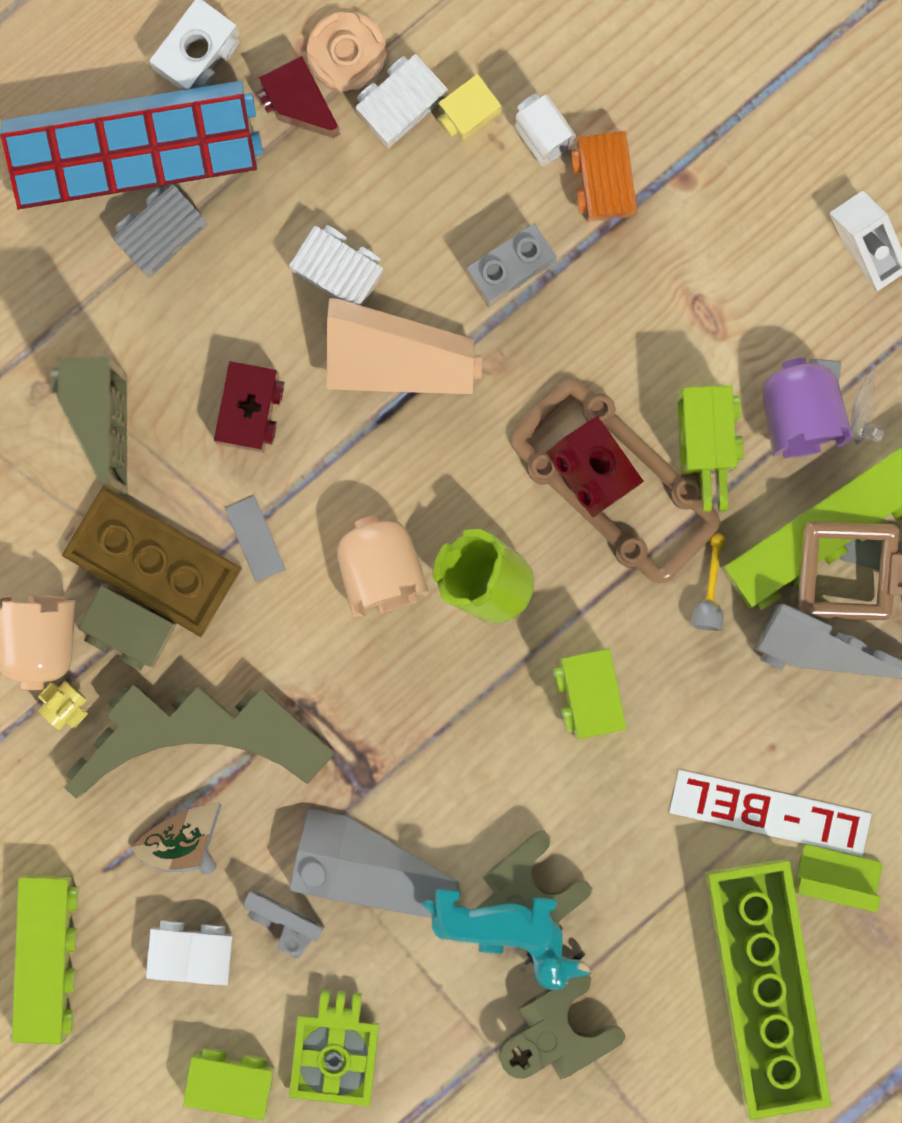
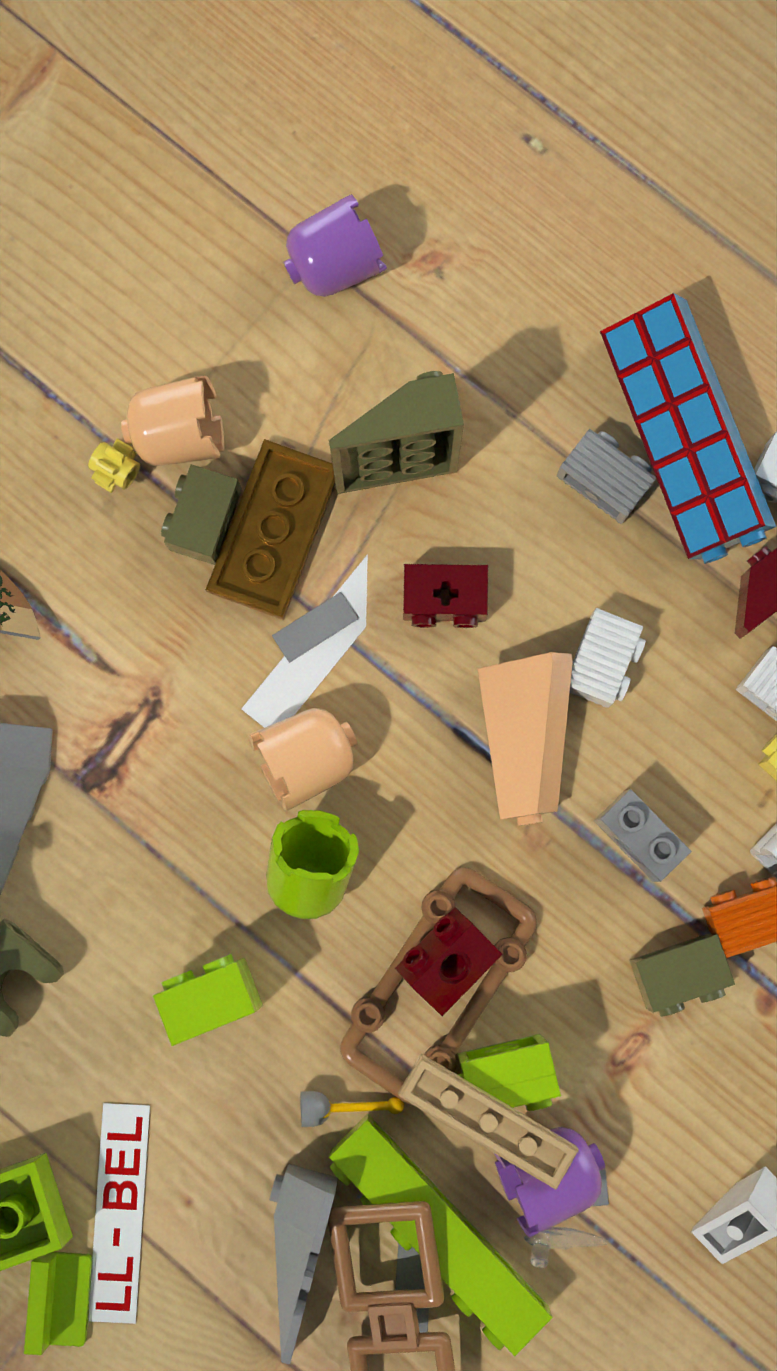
camera: 85 degrees right, 5 degrees down
(145, 725) = (121, 667): olive arch -> none
(305, 568) = (294, 682): none -> white sticker
(644, 253) = (682, 974): none -> olive brick
(742, 454) = (488, 1121): none -> tan tile

